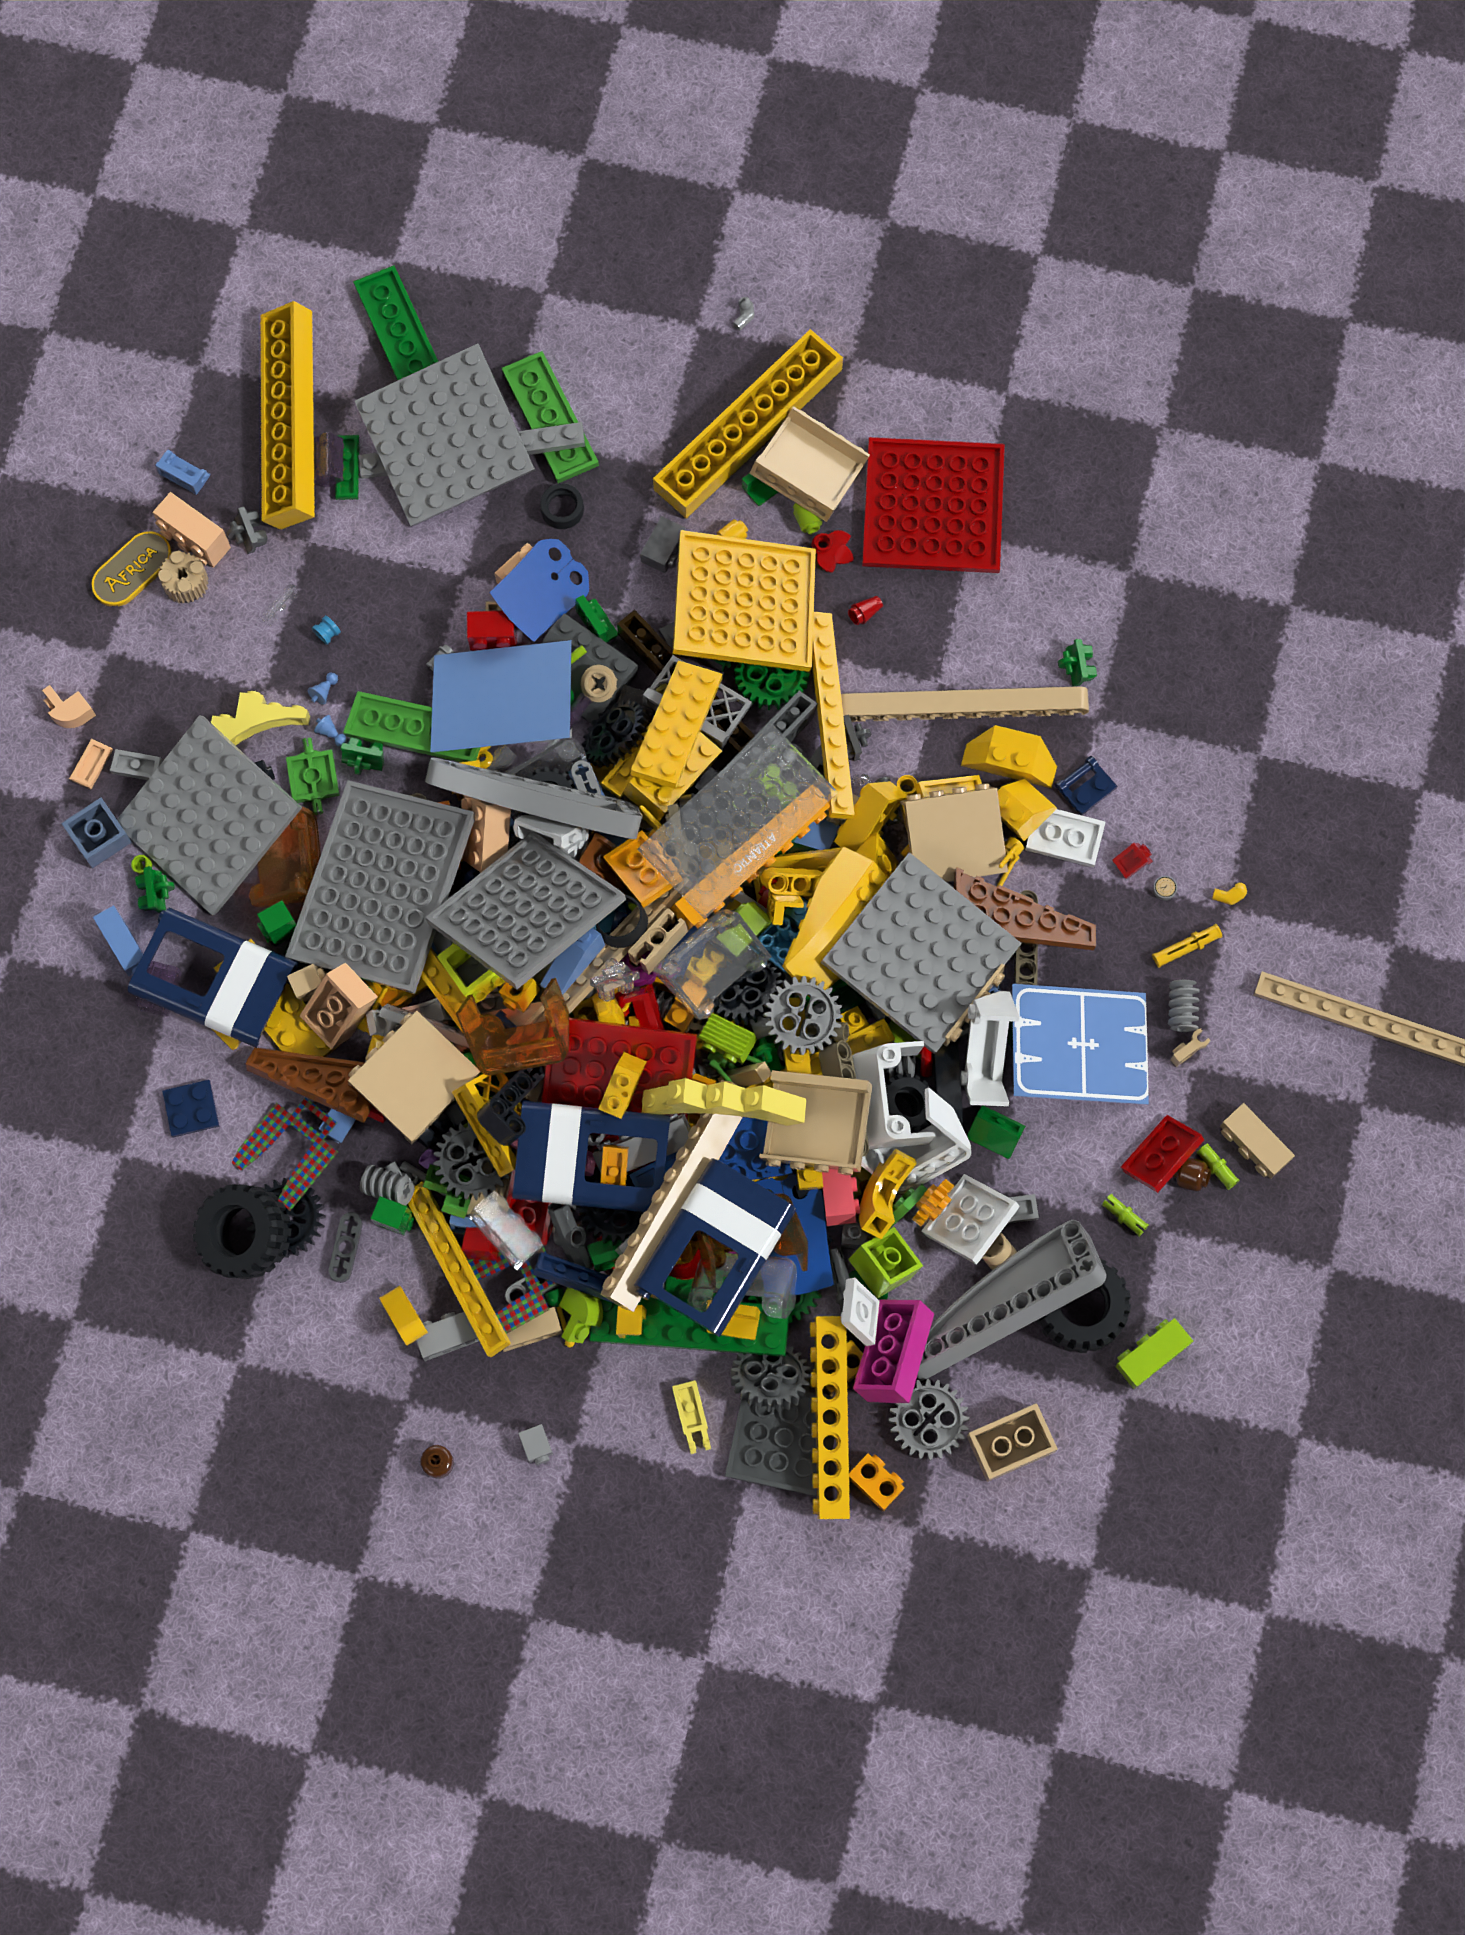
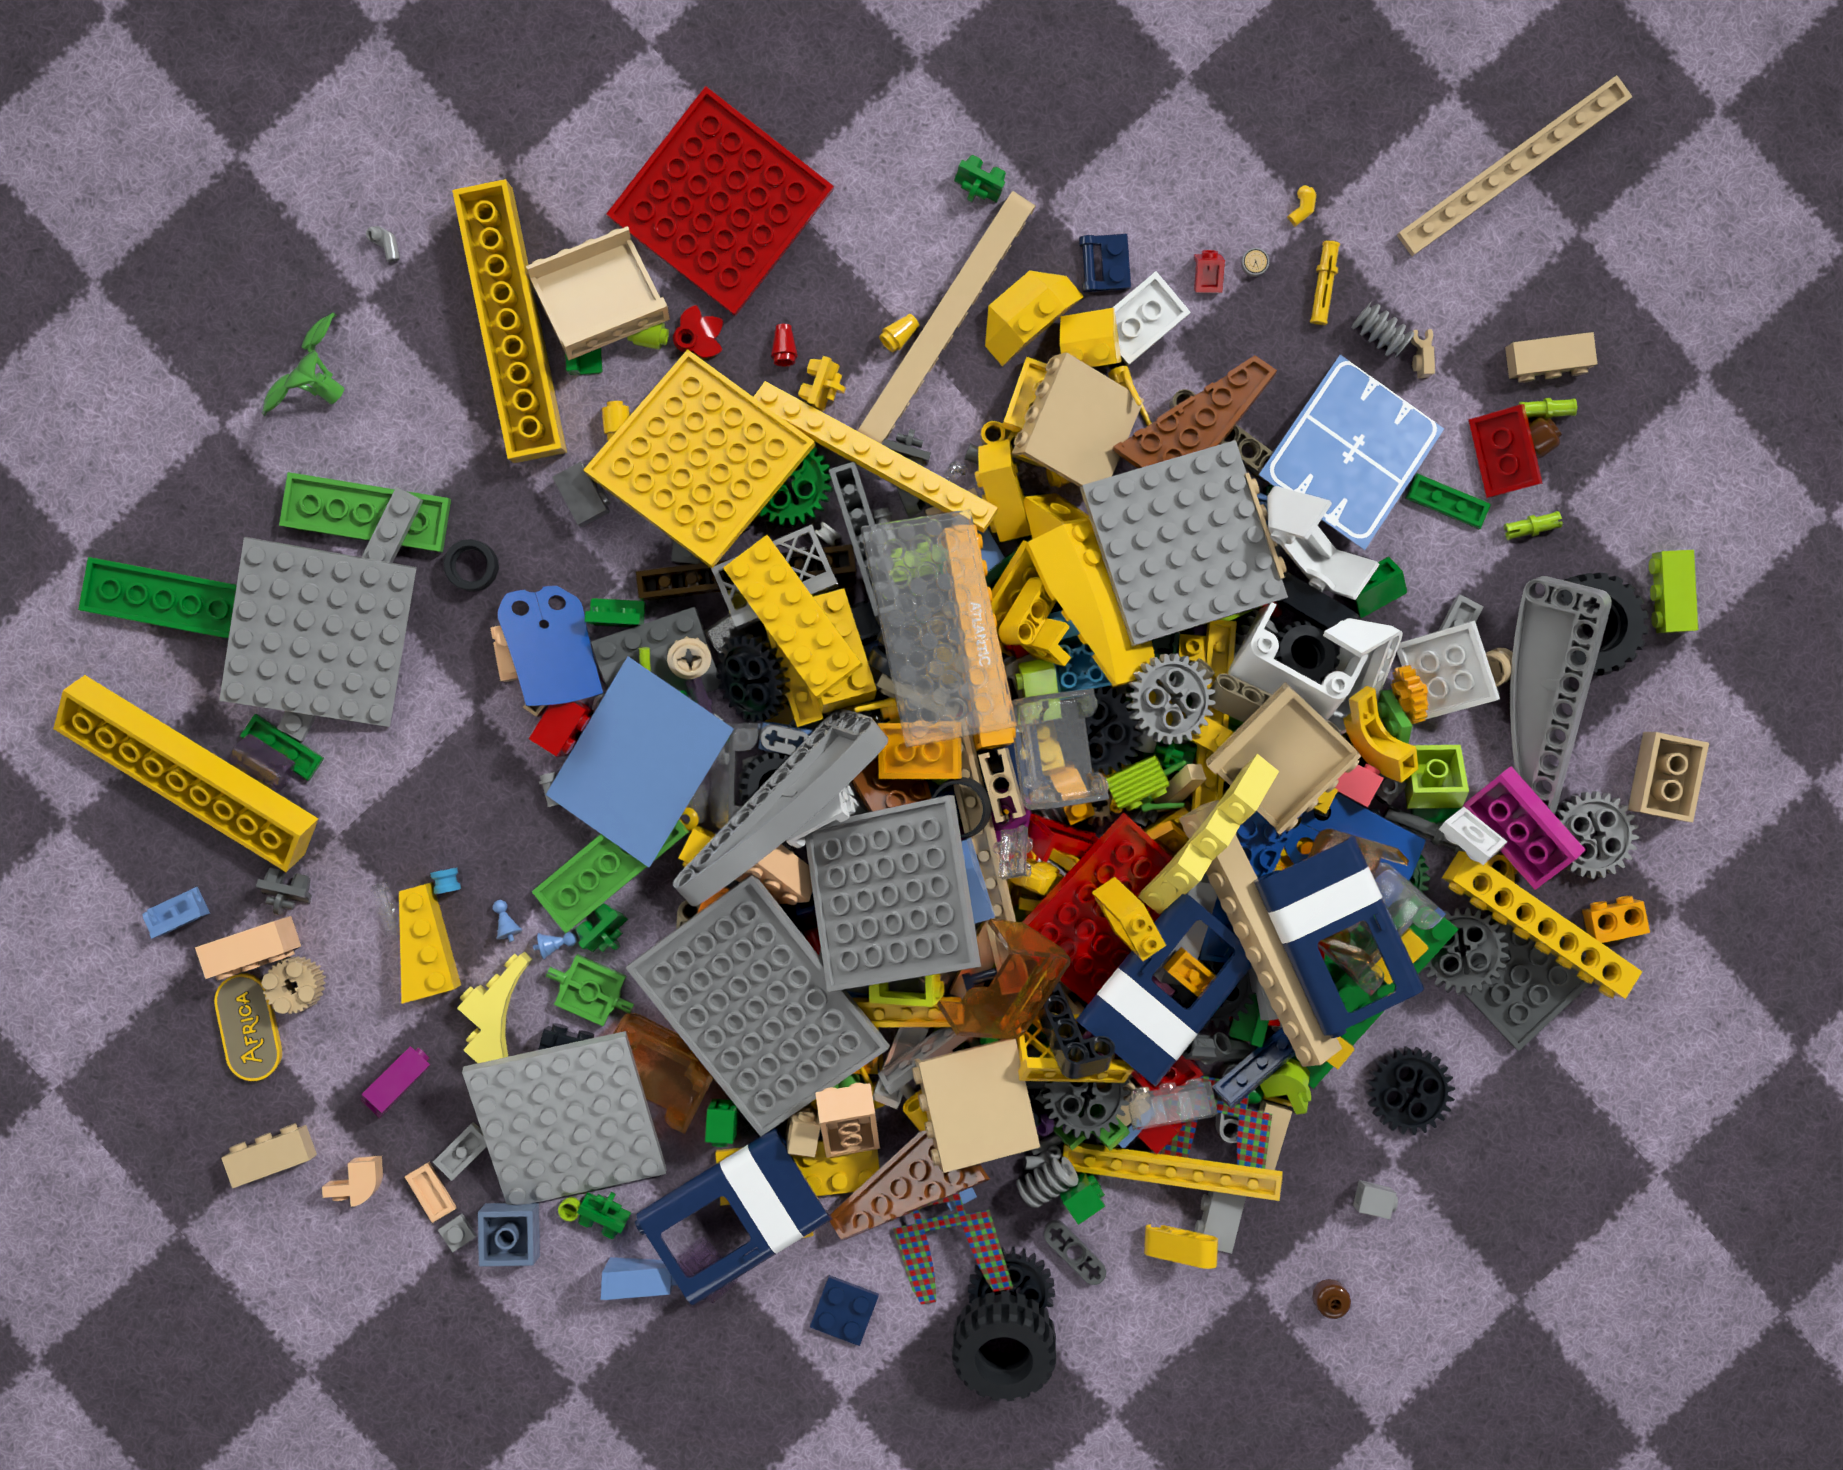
camera: 60 degrees left, 15 degrees up
(48, 638) = (268, 1155): none -> tan brick
(72, 800) = (457, 1232): none -> light grey plate
(157, 686) = (395, 1081): none -> magenta slope
(269, 645) = (424, 946): none -> yellow wedge
(617, 334) = (305, 372): none -> bright green plant
(635, 1391) = (1432, 1100): none -> black gear
(691, 1413) = (1440, 1041): light yellow hinge -> none
(754, 723) = (827, 534): none -> white bush
(859, 652) = (825, 383): none -> yellow hips
(931, 679) = (899, 332): none -> yellow cone
(1097, 1142) = (1448, 501): none -> green tile

